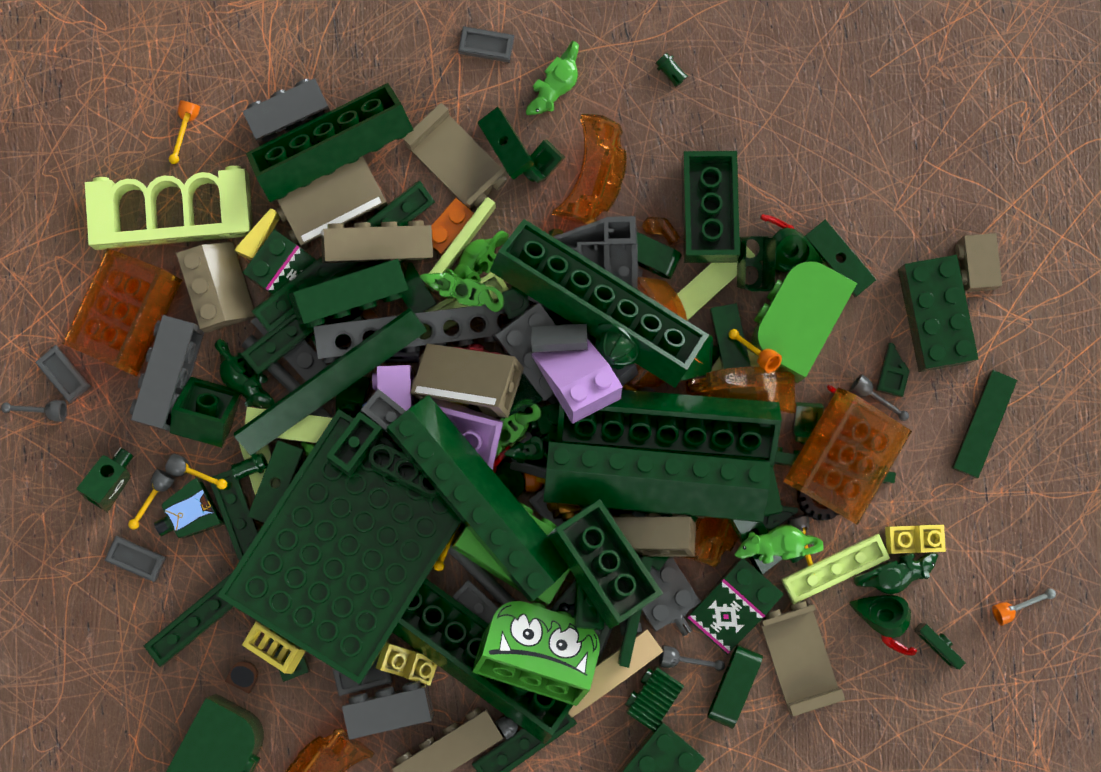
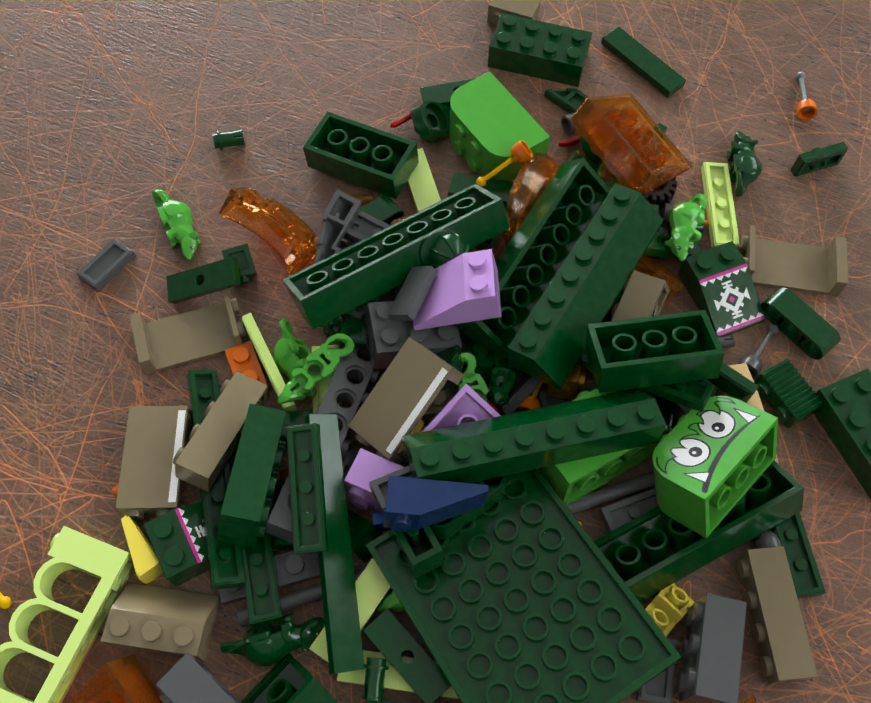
camera: 60 degrees left, 20 degrees down
(285, 110) = (38, 462): dark grey brick -> none
(329, 142) = (95, 432): dark green brick -> none
(352, 342) = (307, 489): none -> dark green tile
(373, 439) = (423, 502): none -> dark blue slope
(767, 254) = (432, 141): dark green piece -> none
(887, 616) = (780, 181): dark green piece -> none
(915, 539) = (718, 141): light yellow slope -> none

